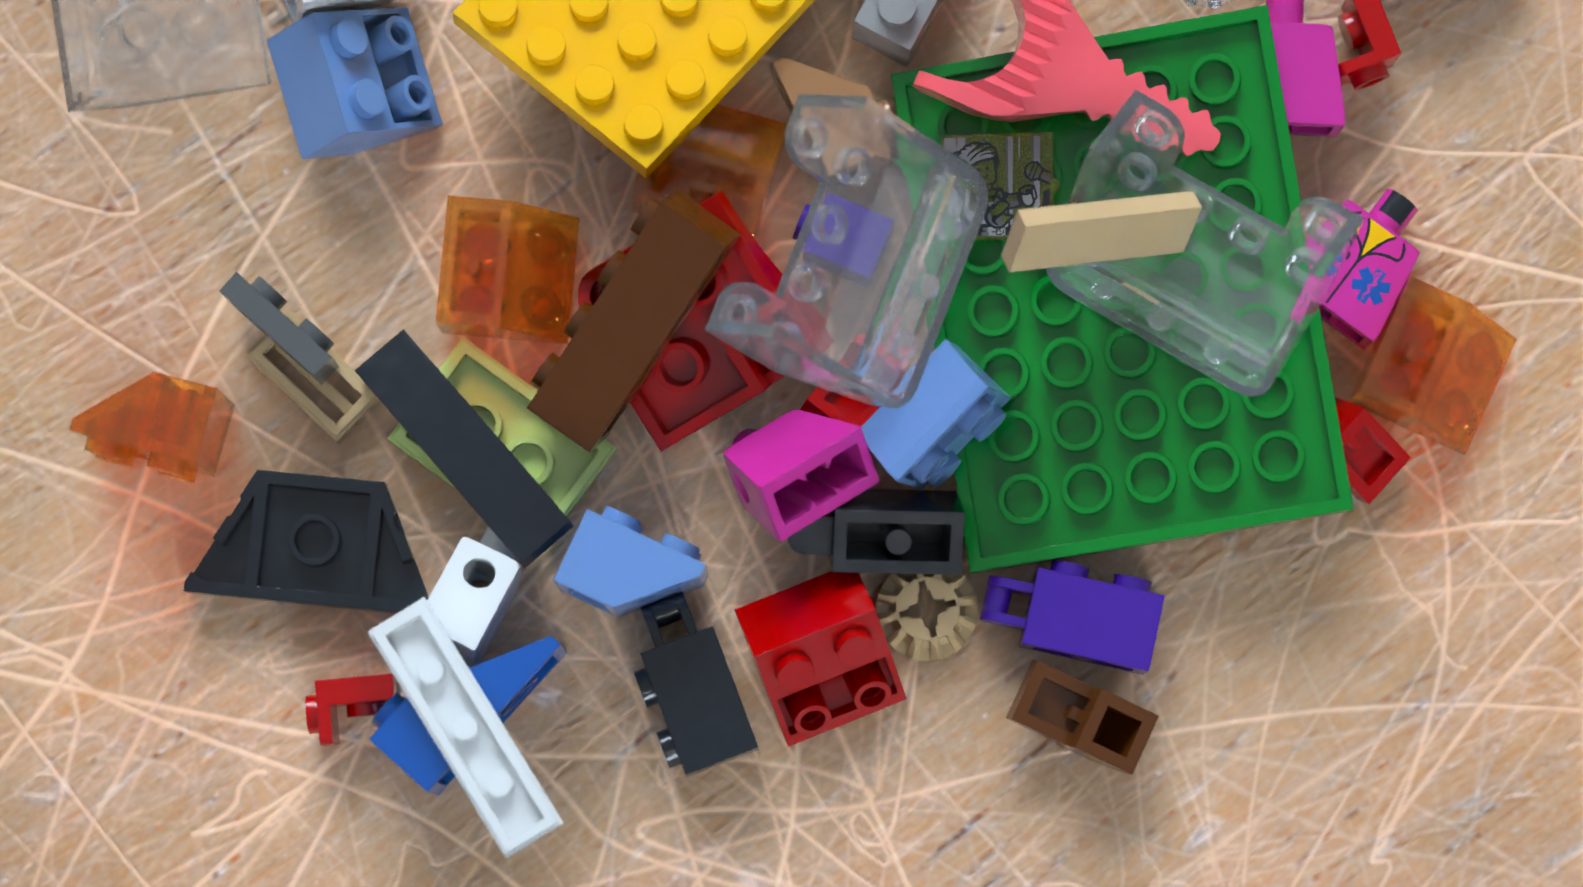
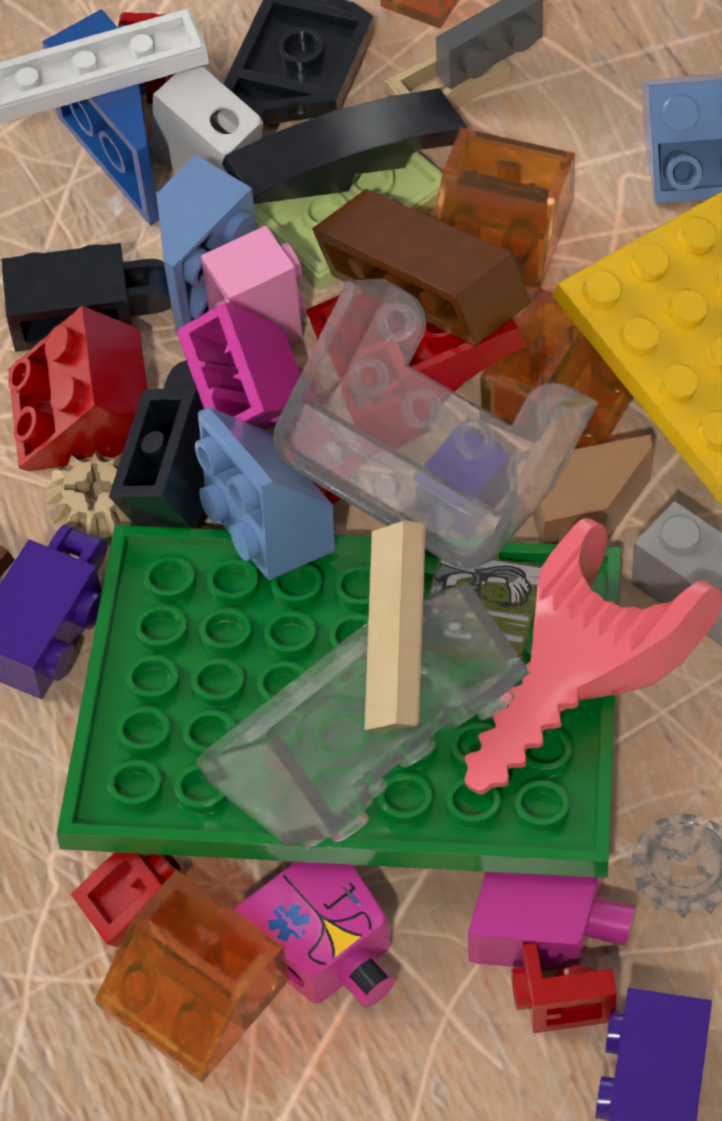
camera: 110 degrees right, 25 degrees down
(682, 491) = (257, 278): none -> bright pink brick

